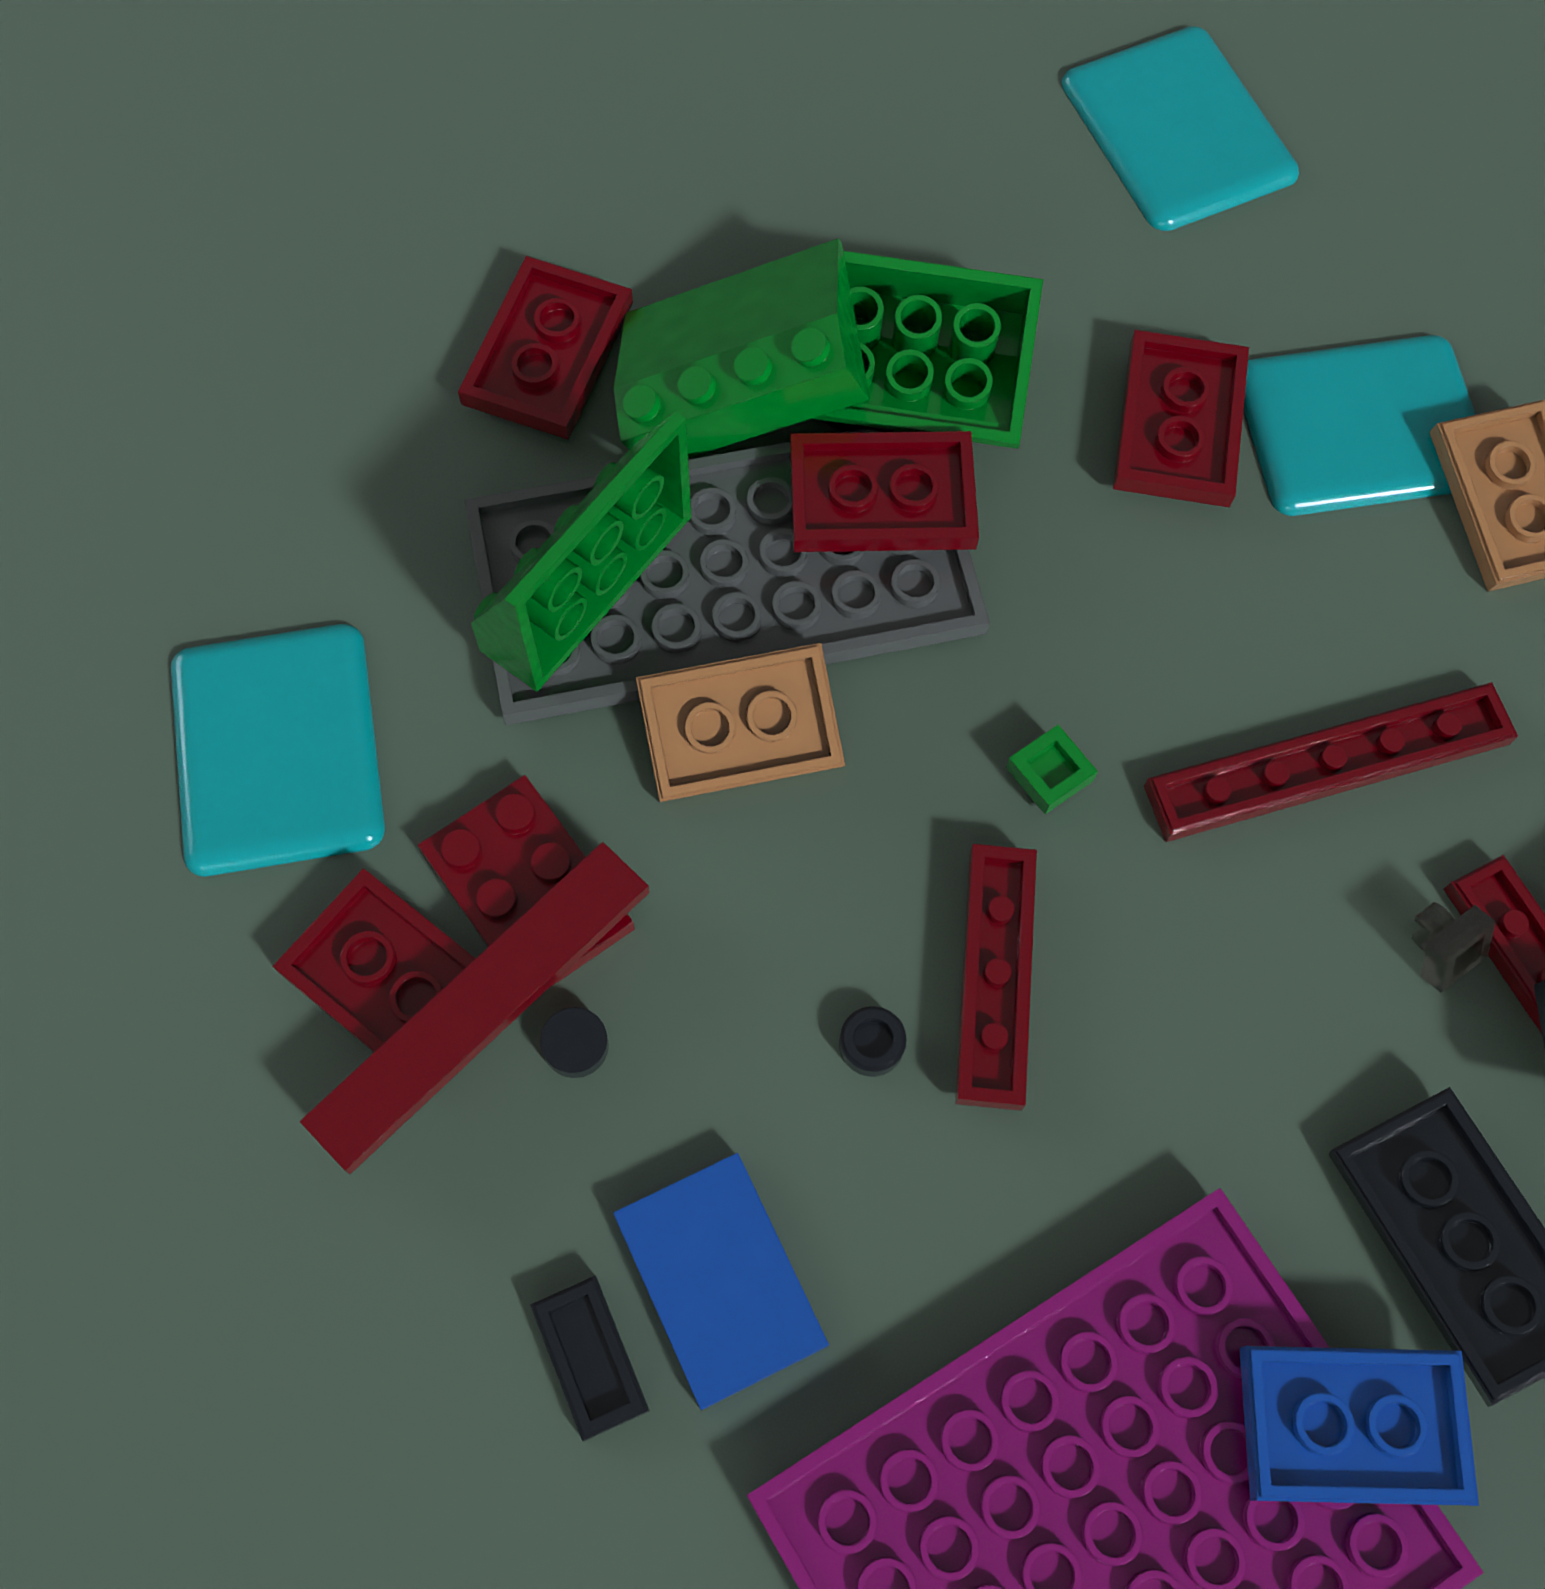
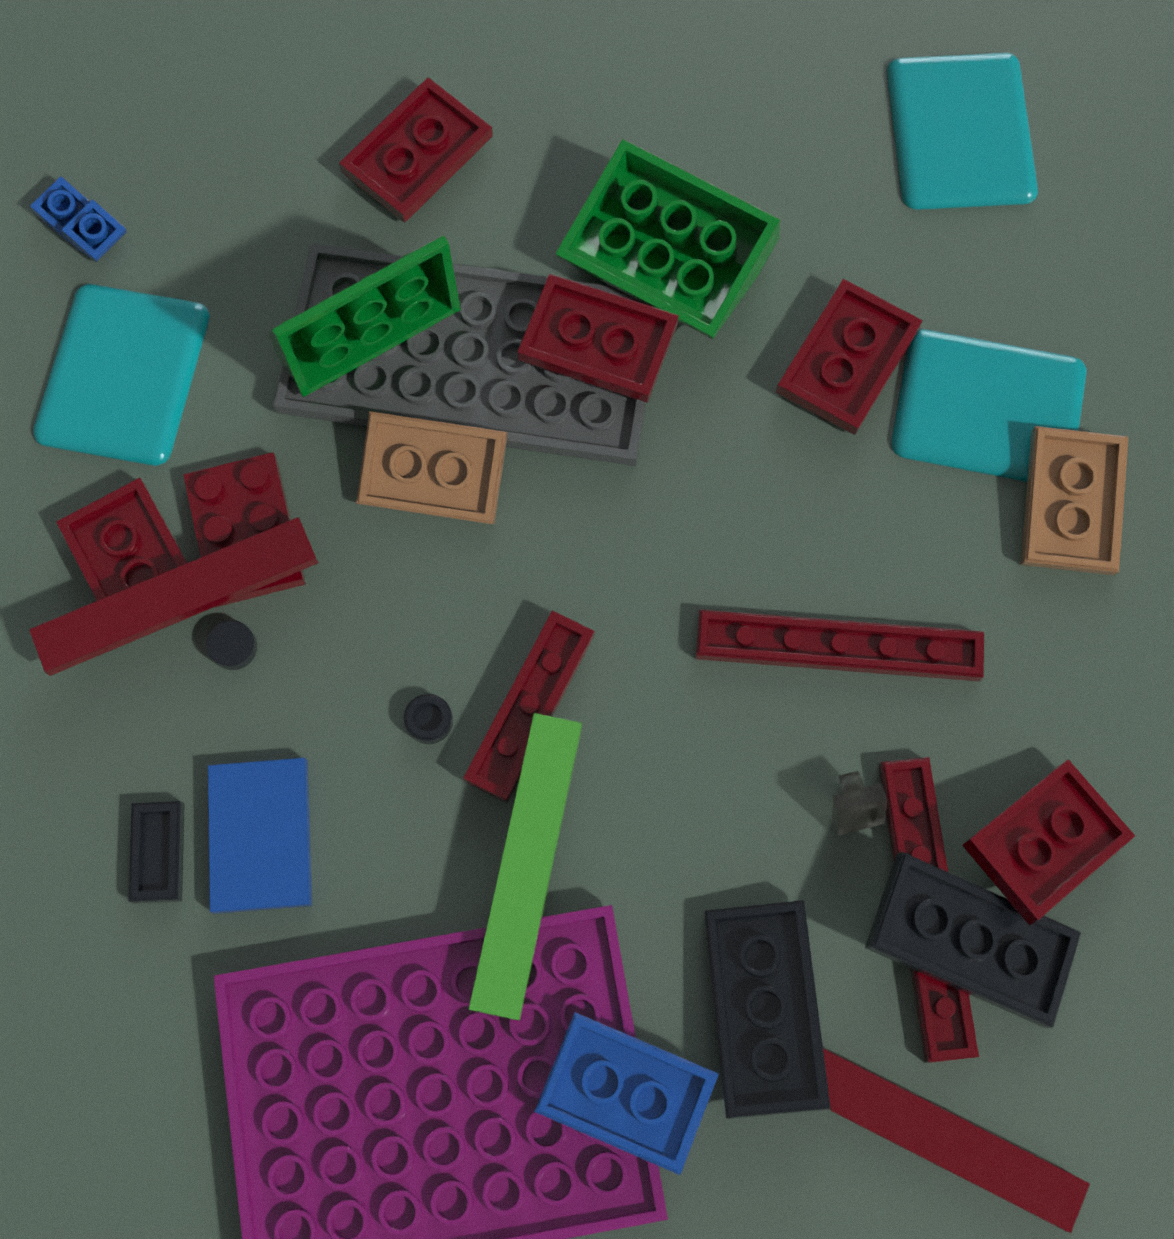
camera: 25 degrees right, 5 degrees up
(138, 573) = (78, 219): none -> blue slope
(744, 353) = (539, 204): green slope -> none
(1051, 769) = (633, 578): green plate -> none
(1096, 1186) = (526, 868): none -> bright green tile

